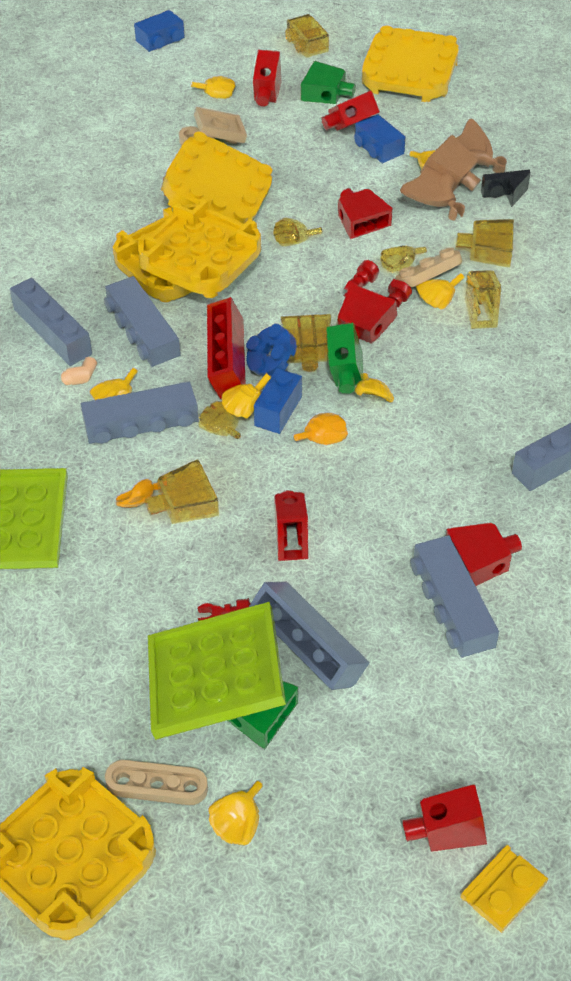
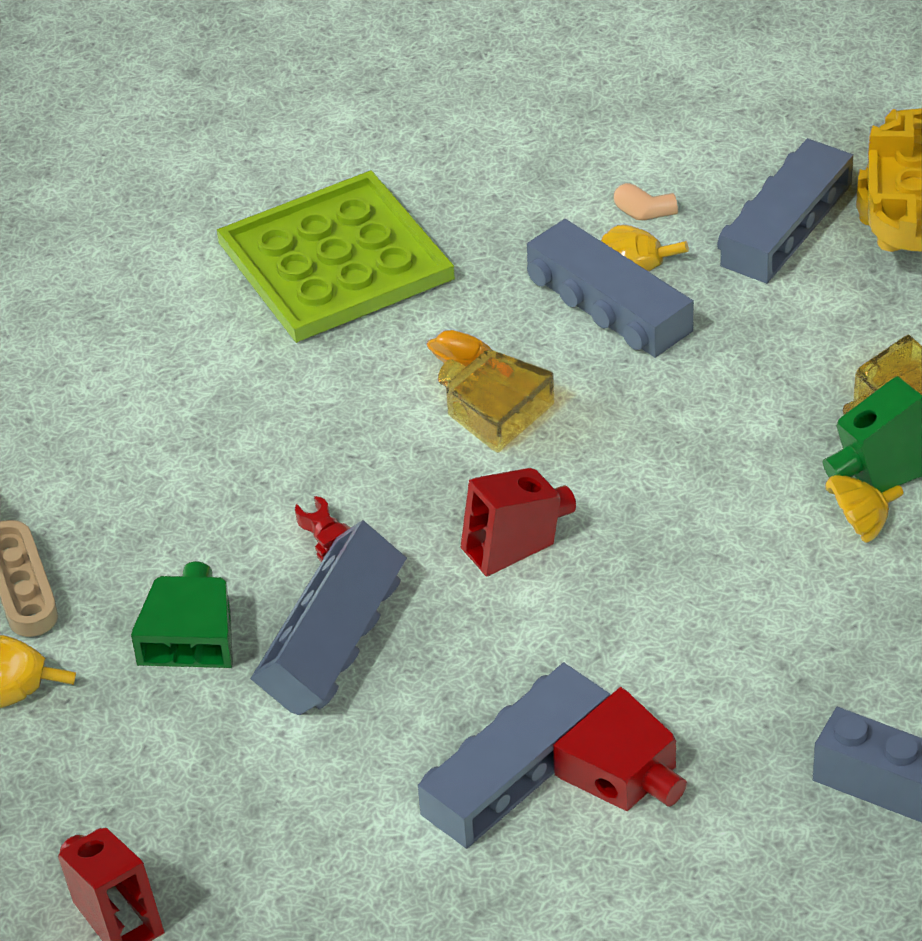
camera: 65 degrees right, 5 degrees down
(51, 321) = (703, 127): sand blue brick -> none
(214, 671) = (200, 542): lime plate -> none
(219, 421) = (674, 375): clear yellow piece -> none
(225, 346) = (799, 310): red brick -> none
(241, 398) = (712, 371): yellow piece -> none
(272, 339) = (839, 355): blue plate -> none
(278, 401) = (744, 410): blue brick -> none
(324, 429) = (740, 488): light orange piece -> none

